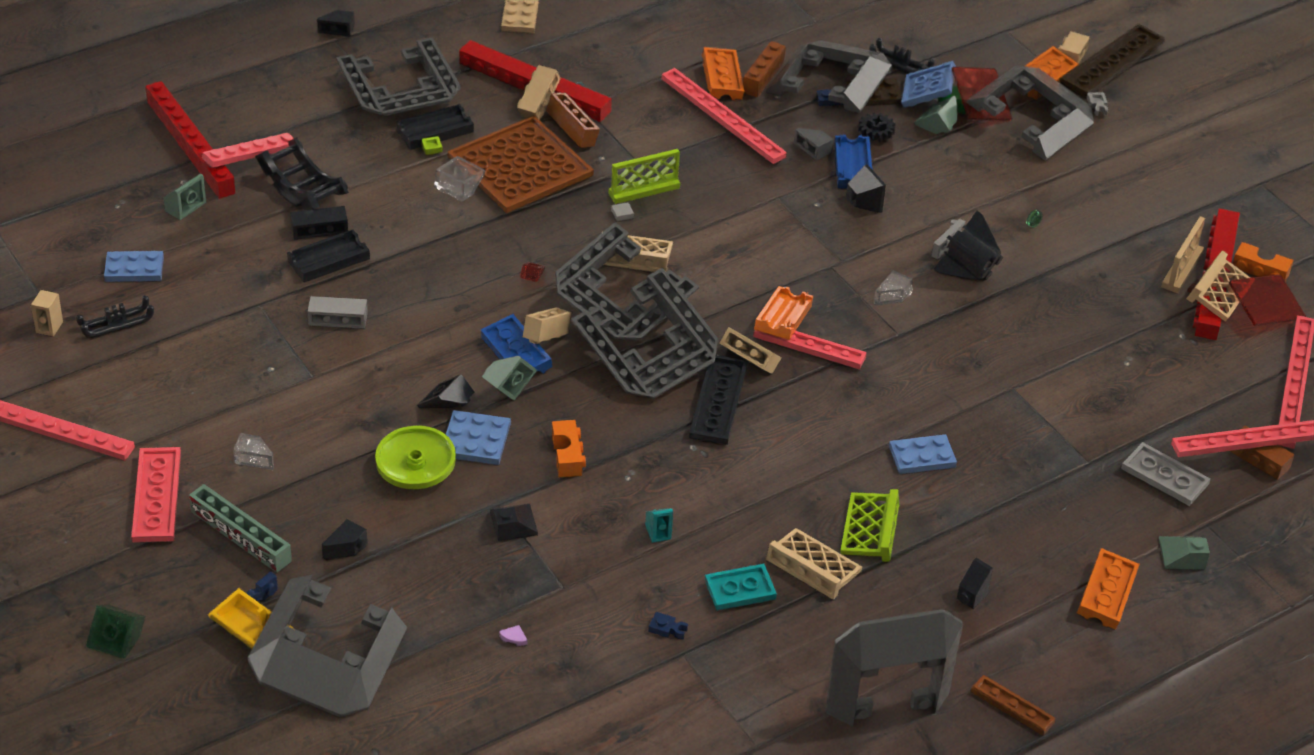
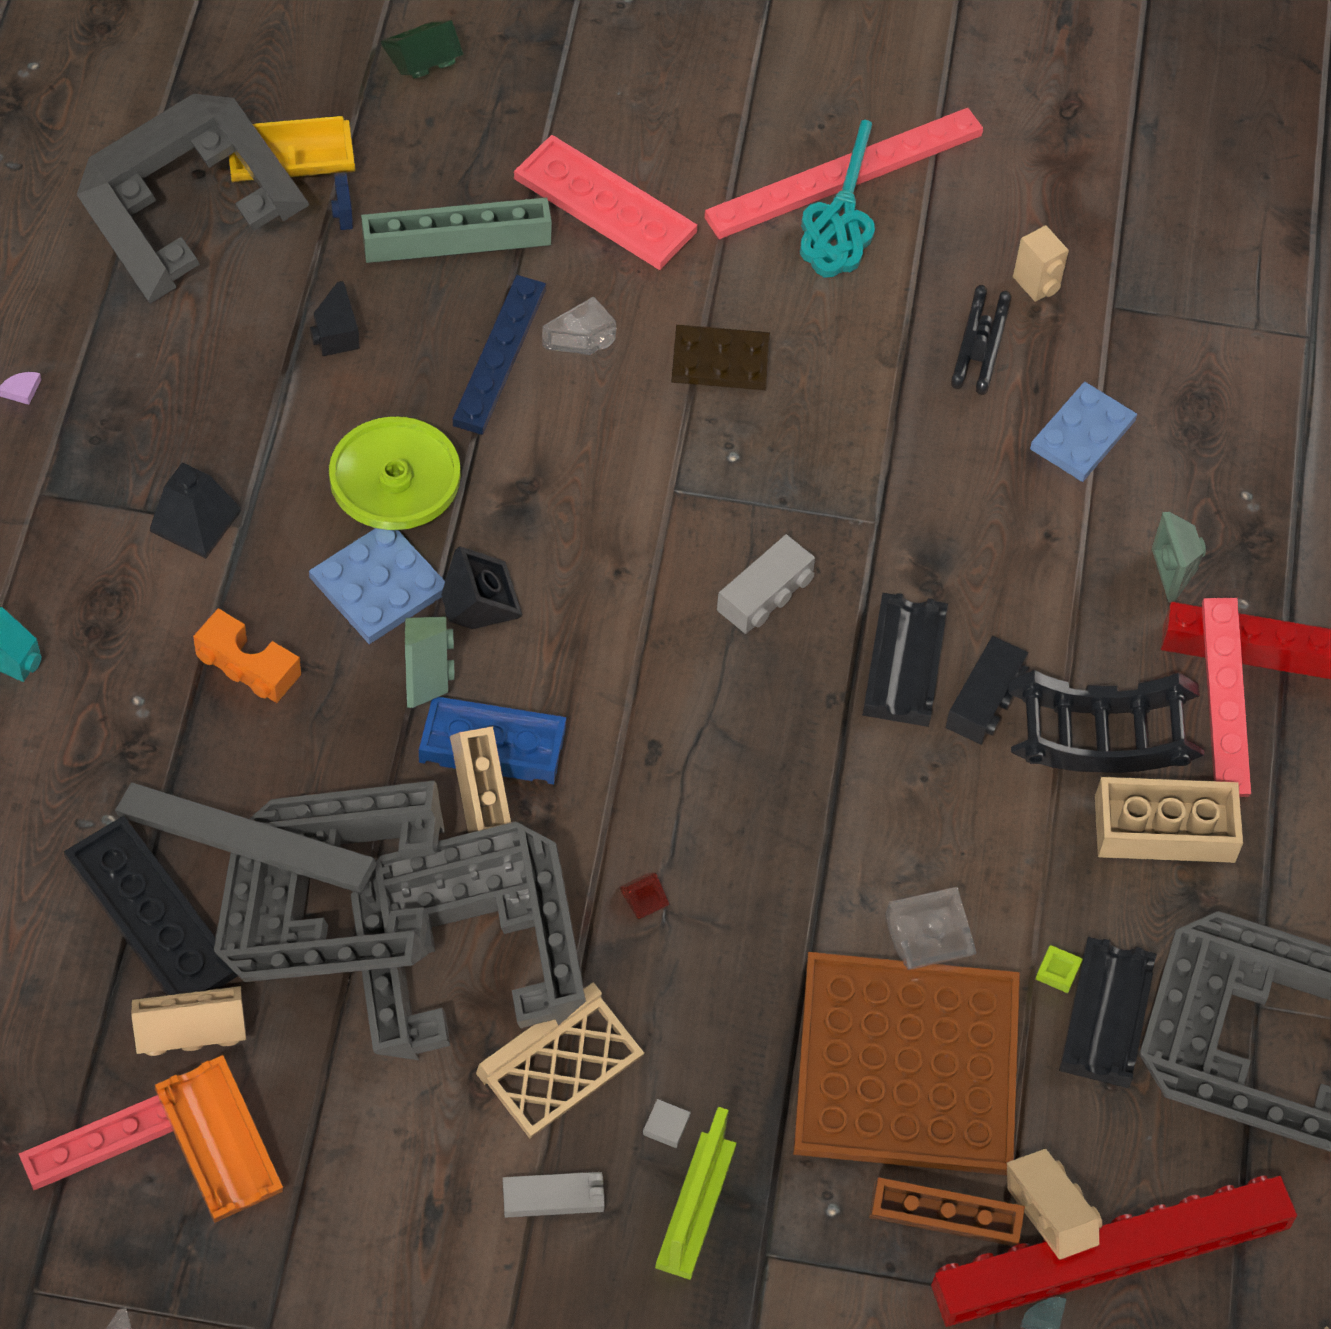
camera: 130 degrees right, 15 degrees up
(87, 400) = (824, 257): none -> teal piece
(215, 401) = (720, 357): none -> dark brown plate
(296, 477) = (499, 355): none -> dark blue plate
(330, 142) = (1168, 819): none -> tan brick
(656, 383) = (246, 837): none -> dark grey tile
(686, 223) = (553, 1194): none -> light grey hinge

